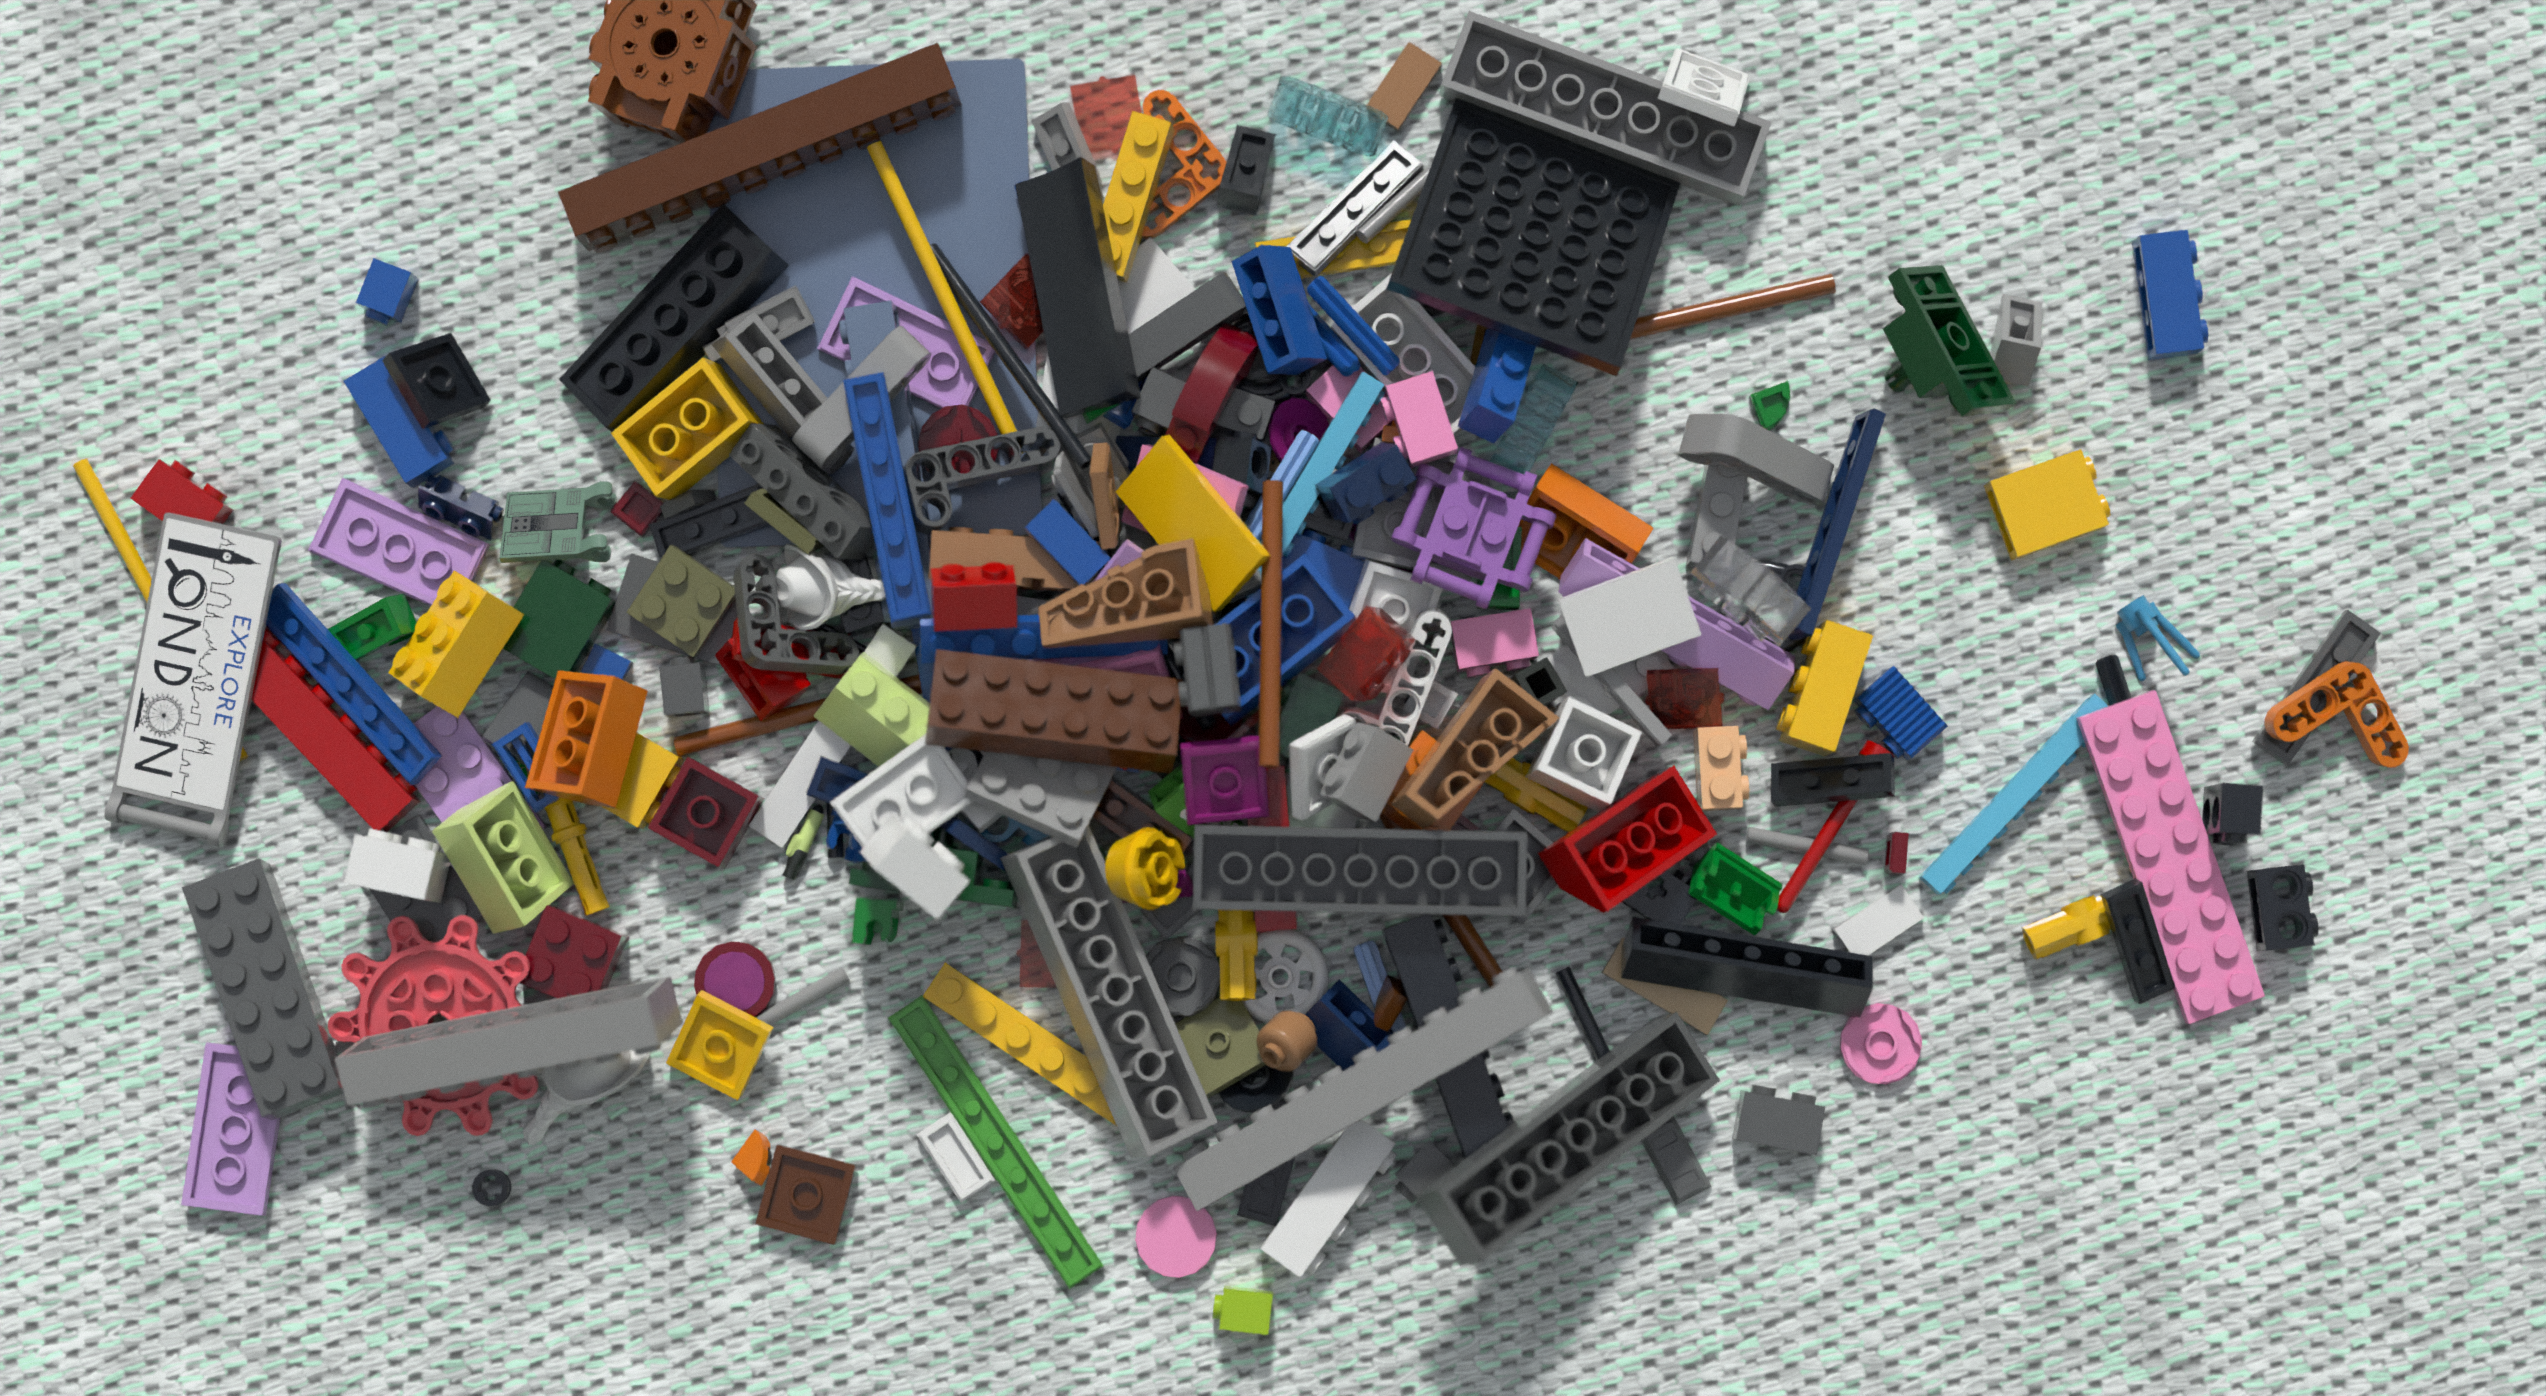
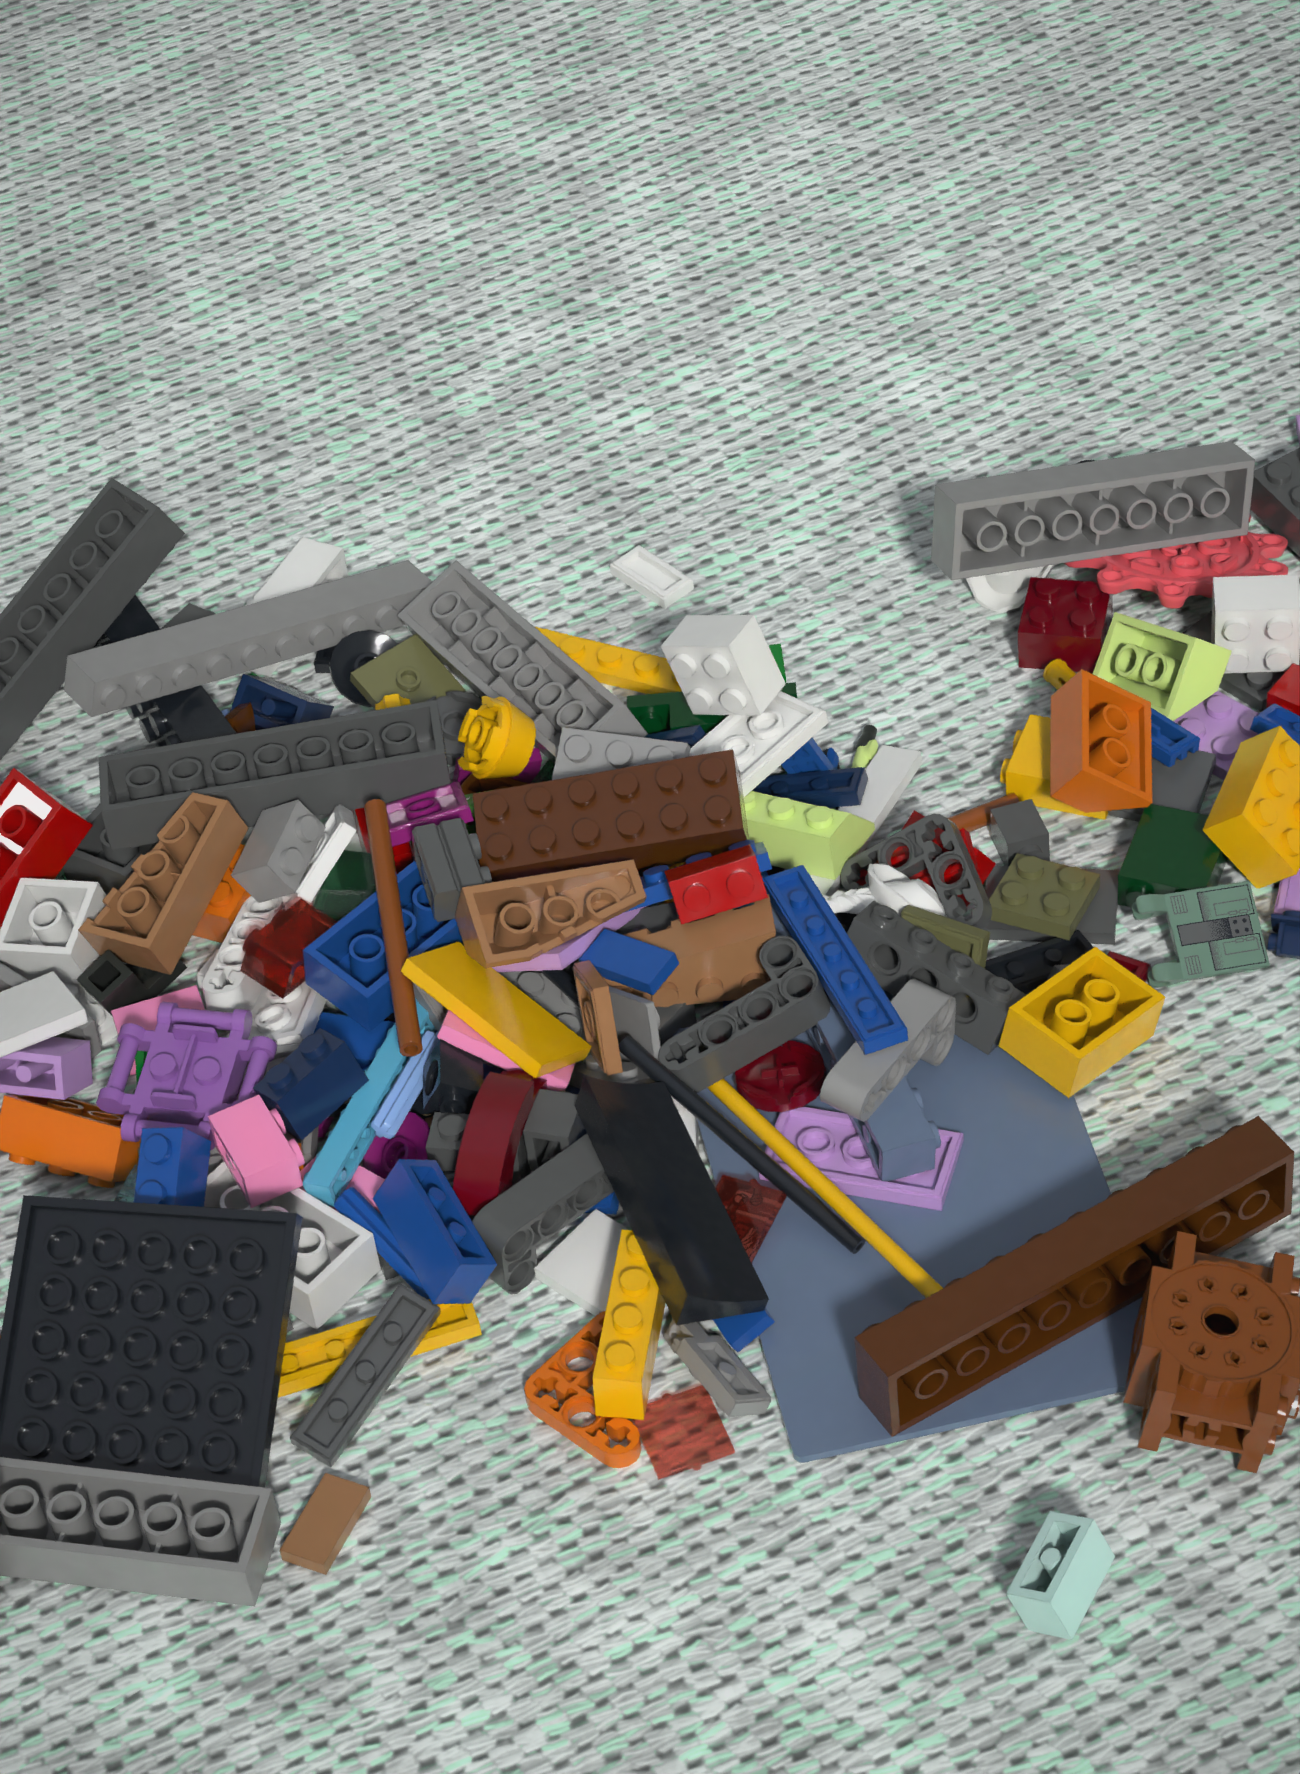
camera: 175 degrees right, 40 degrees down
(606, 662) = (1108, 844): blue tile -> none
(673, 318) = (1138, 1118): black arch -> none
(706, 813) = (963, 742): dark red brick -> none
(719, 1045) = (899, 595): yellow plate -> none
(737, 976) = (901, 650): flat silver tile -> none
(753, 1157) = (844, 534): orange tile -> none
(770, 372) = (1000, 1069): light grey brick -> none
(781, 314) = (1032, 1130): light grey hinge -> none
(804, 997) = (839, 647): light grey bar -> none
(806, 1194) = (787, 523): reddish brown plate -> none
(996, 1141) = (590, 577): bright green tile -> none
(1175, 1237) = (431, 553): bright pink tile -> none
(1243, 1310) = (354, 521): lime brick -> none
(1245, 170) = (501, 1390): black plate -> none
(1288, 1039) = (337, 677): medium nougat head -> none
(1327, 116) = (392, 1471): clear light blue beam -> none
(1353, 325) = (346, 1228): blue axle -> none
(1393, 207) = (310, 1394): light grey bar -> none
(1582, 1012) = (43, 773): black bar -> none

